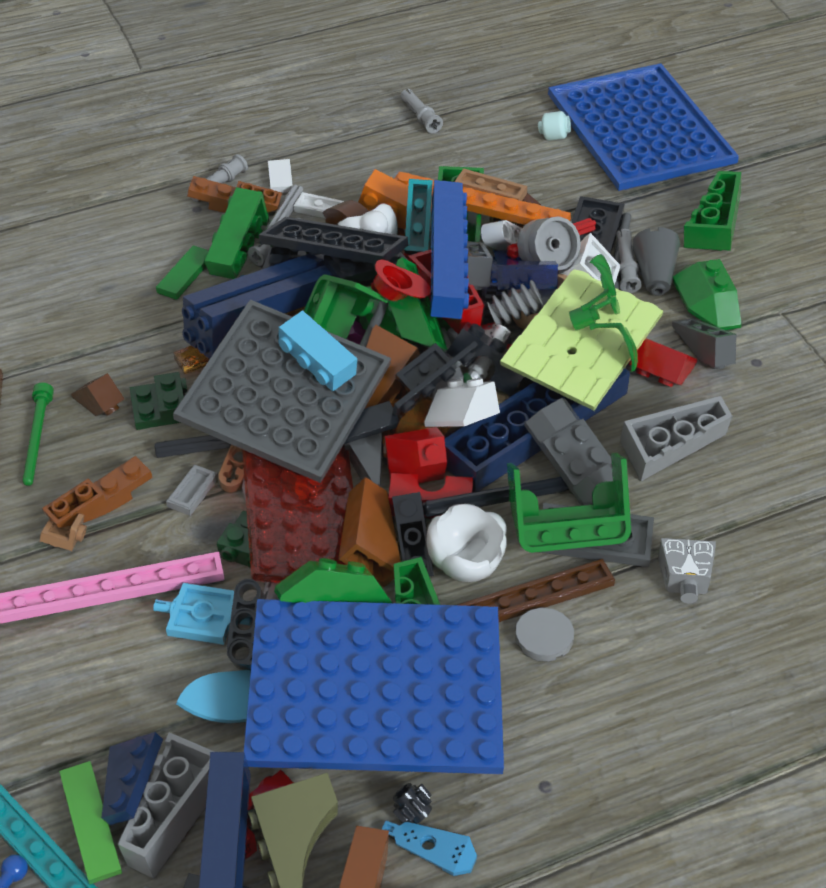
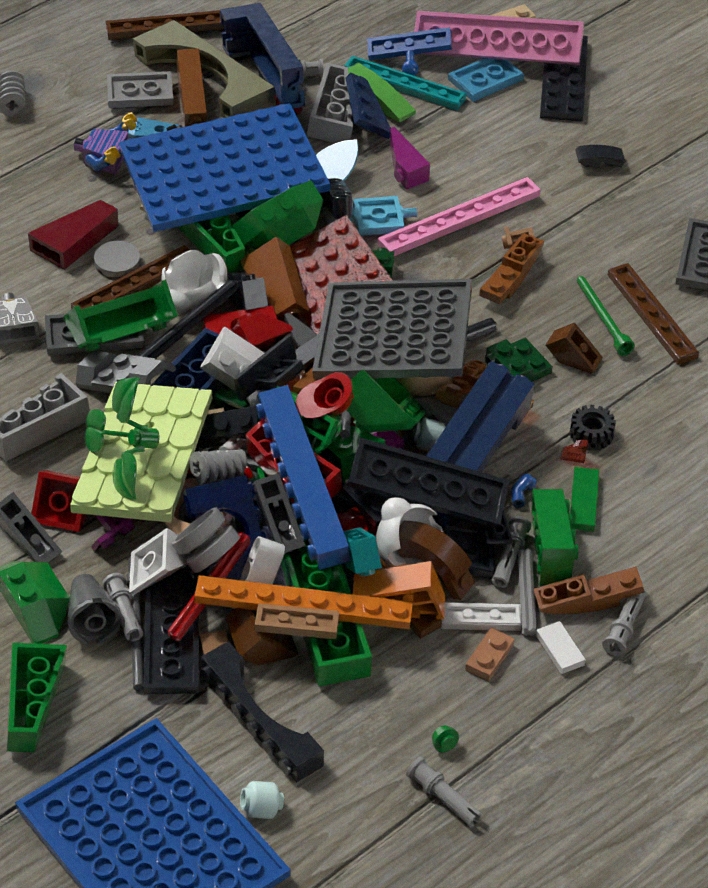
camera: 160 degrees right, 0 degrees up
(124, 685) = (408, 164): none -> magenta slope
(136, 332) = (594, 417): none -> black tyre
(165, 304) = (575, 452): none -> clear red tile
(317, 351) = (375, 339): medium azure brick -> none
(338, 183) = (489, 654): none -> nougat plate
(403, 135) = (445, 738): none -> green plate
(518, 809) = (102, 147): none -> torso
(520, 148) = (296, 752): none -> black arch
(590, 674) = (73, 234): none -> dark red slope

